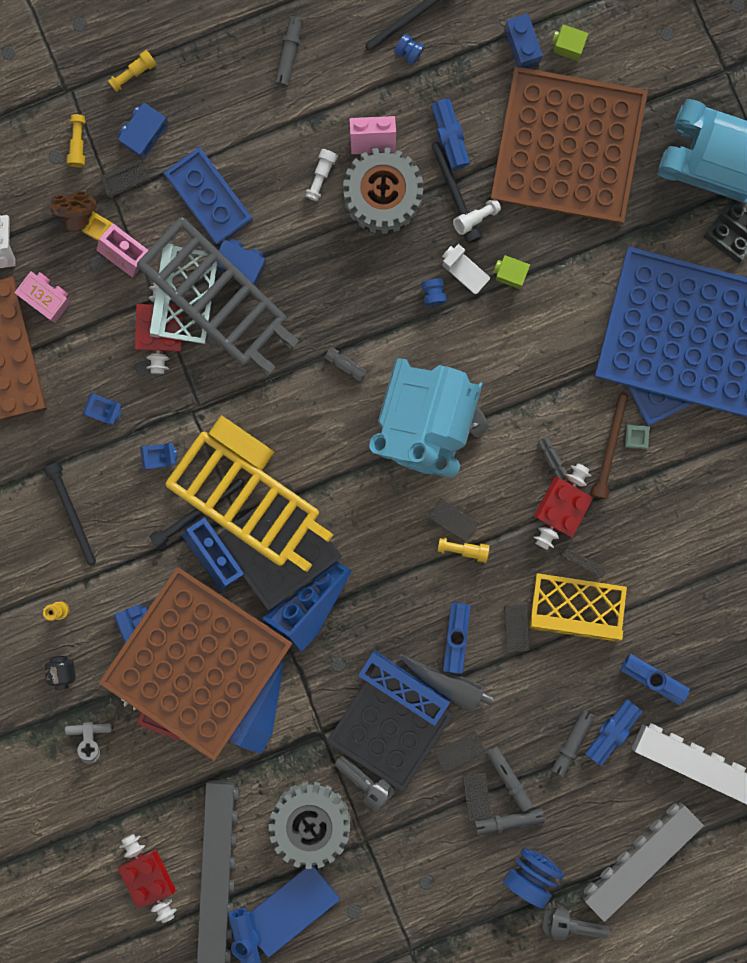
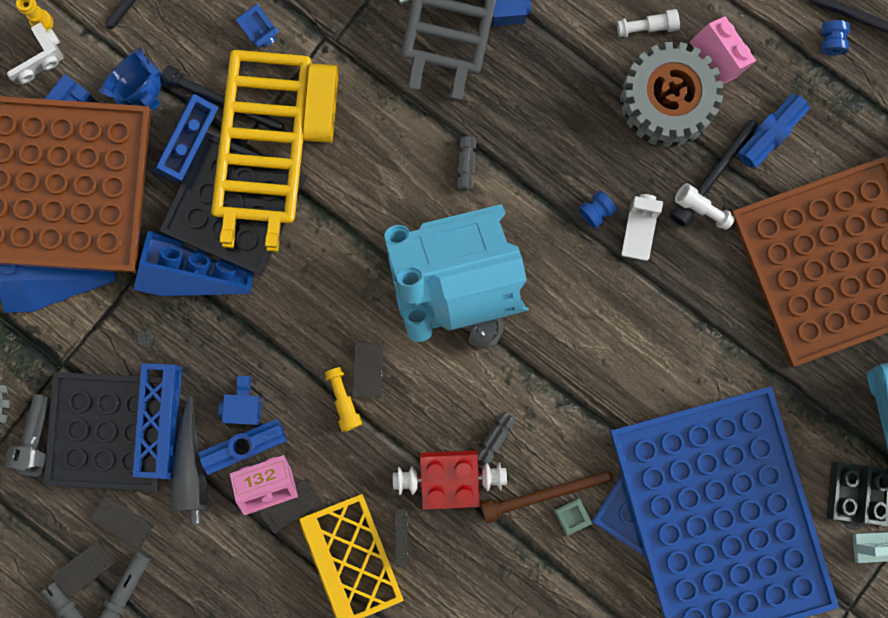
camera: 60 degrees right, 5 degrees down
(79, 612) = (43, 61): none -> white bracket
(148, 568) = (134, 81): none -> blue helmet
(428, 624) = (241, 408): none -> blue brick
(492, 637) = (263, 485): none -> bright pink brick
(511, 271) = (668, 278): lime brick -> none

